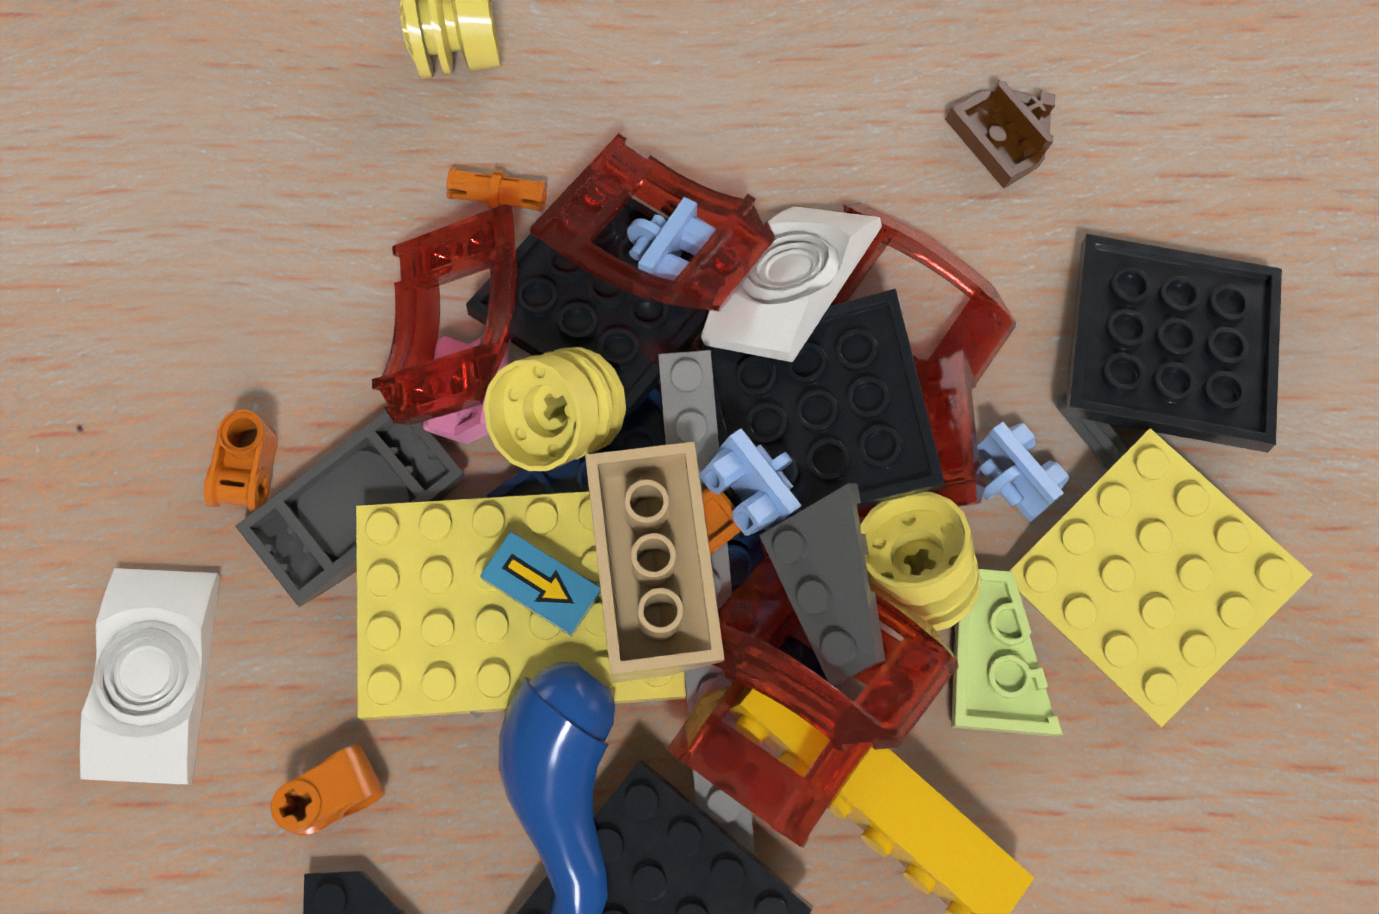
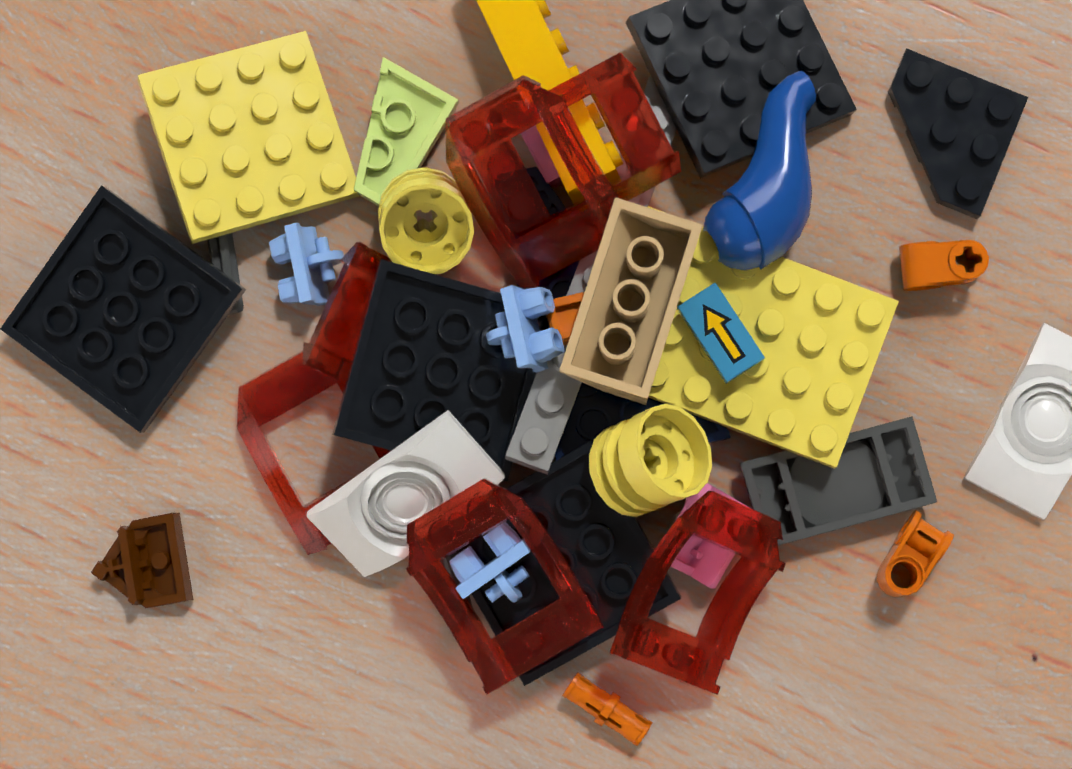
camera: 150 degrees left, 10 degrees up
(827, 582) = (509, 227): dark grey wing -> none

